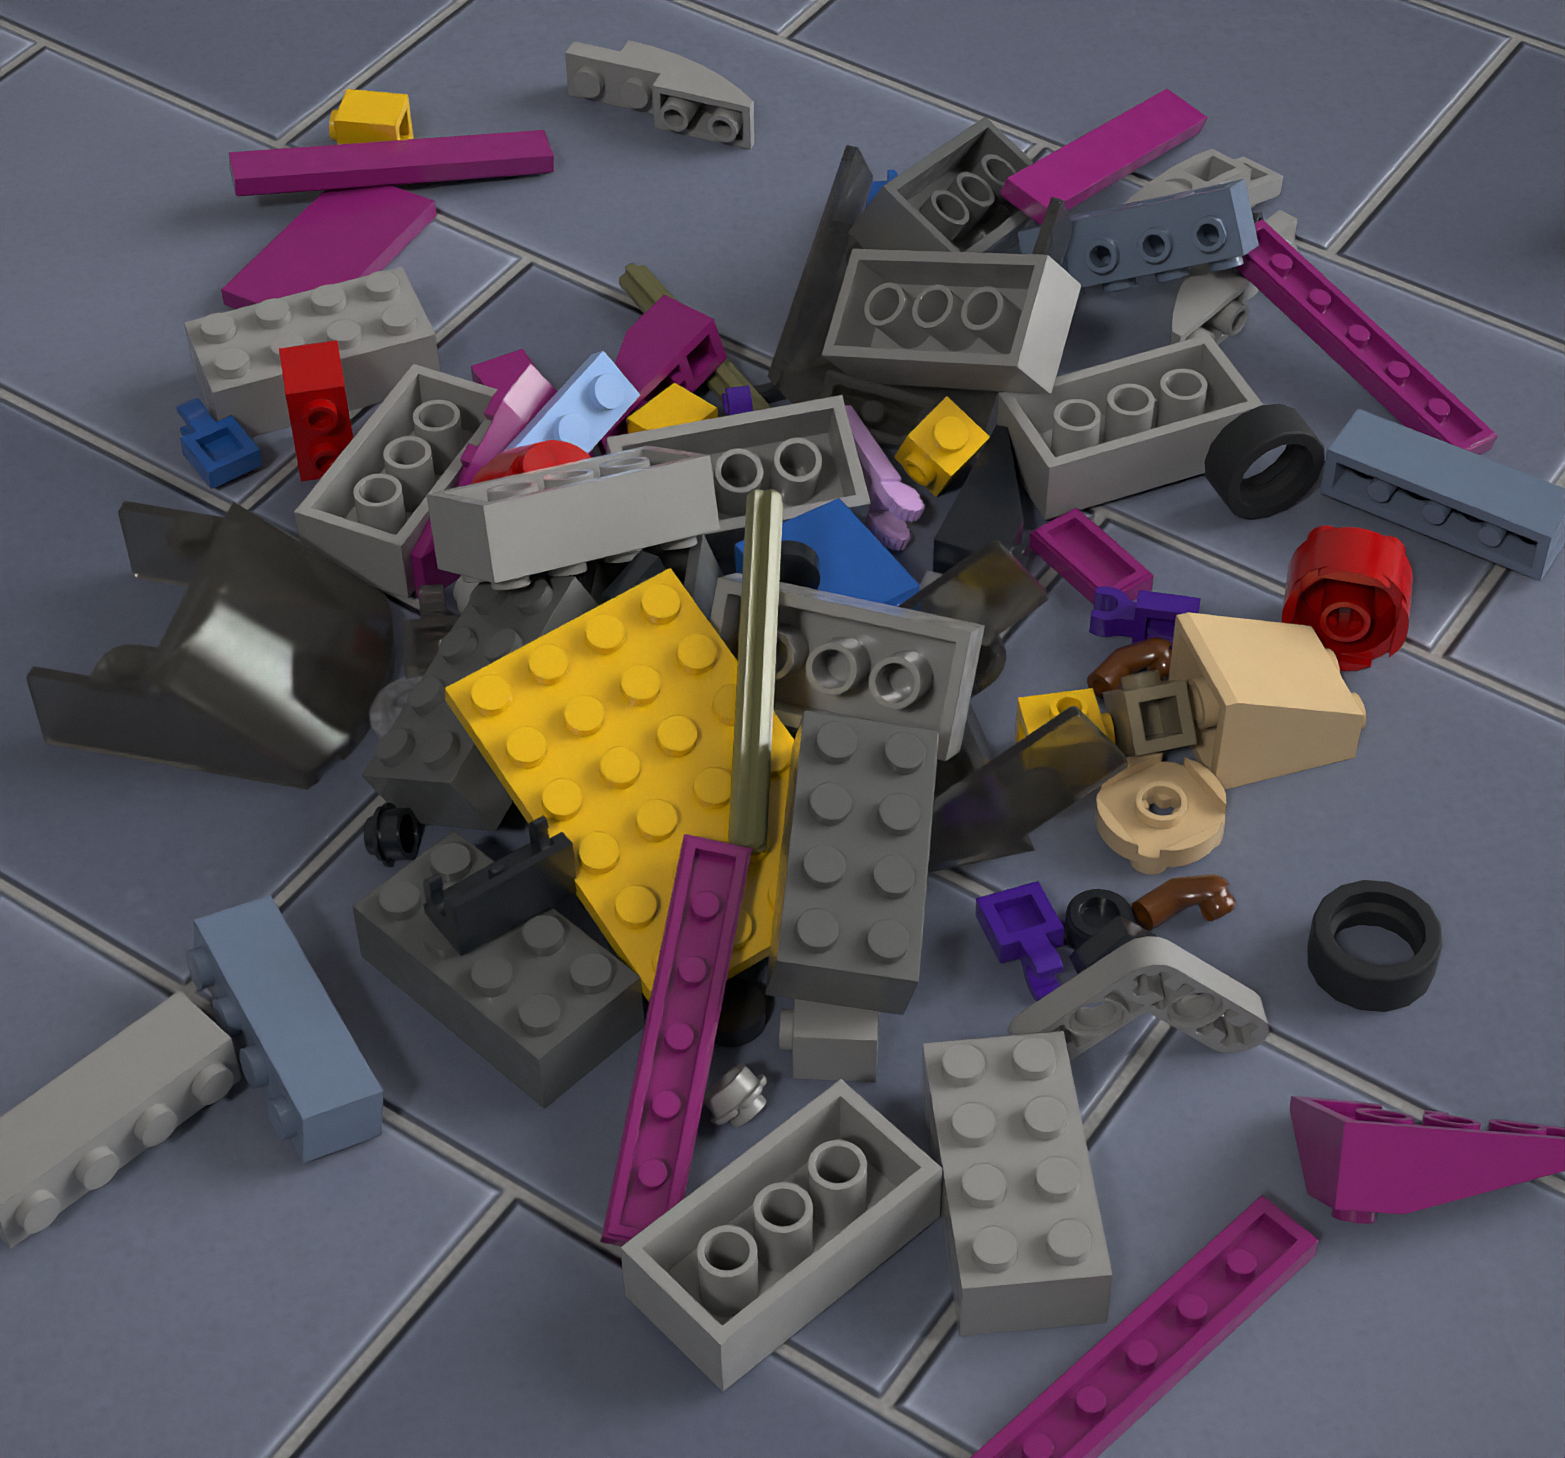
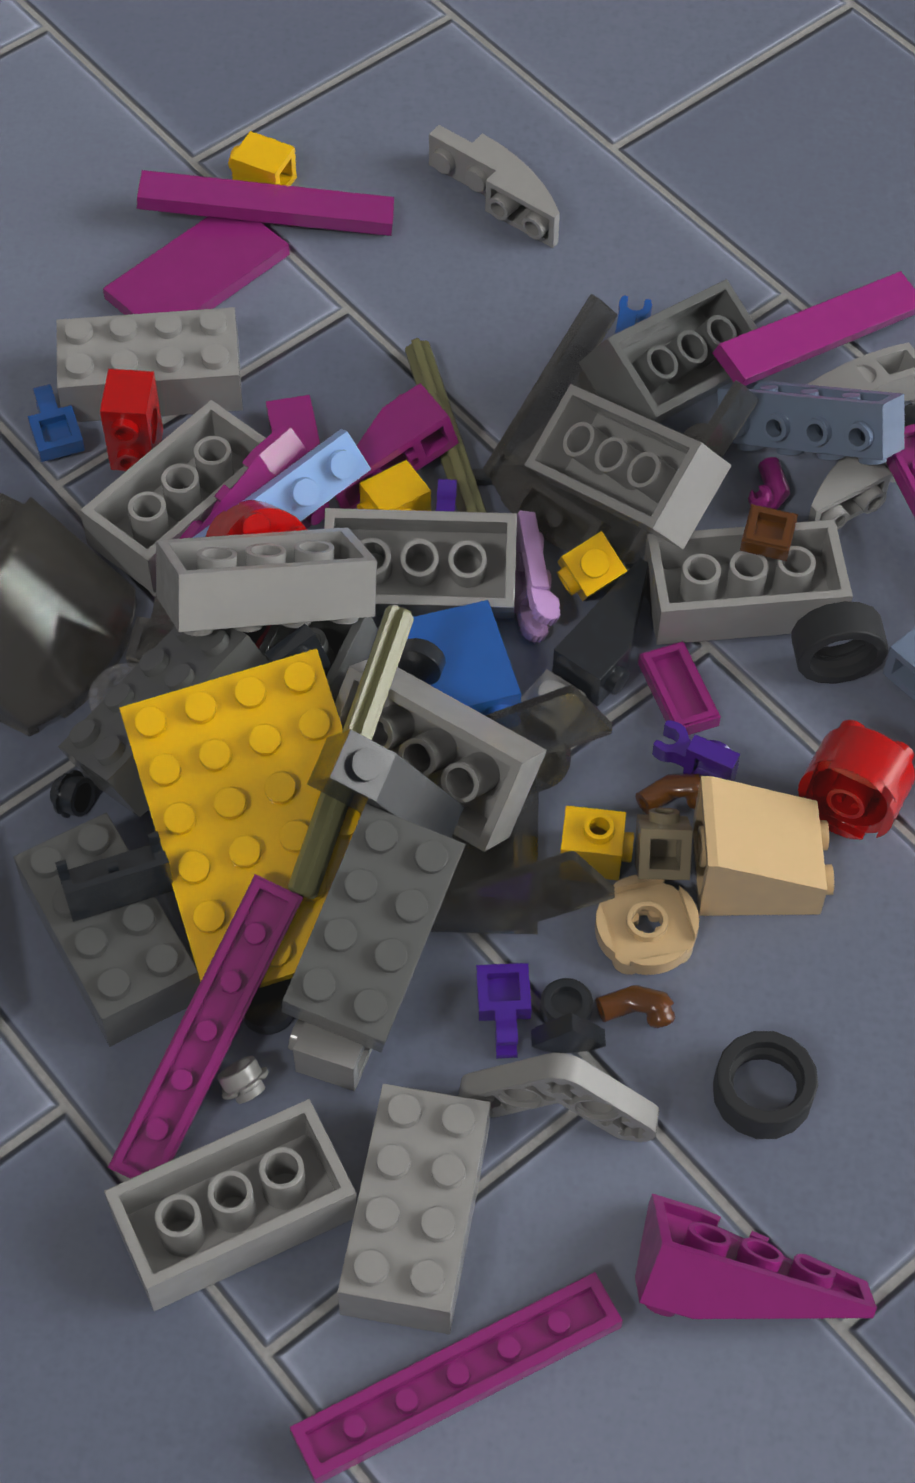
camera: 15 degrees right, 10 degrees up
(784, 671) = (370, 774): none -> slope
(1114, 332) = (775, 486): none -> magenta arm
(1141, 359) = (768, 532): none -> reddish brown tile

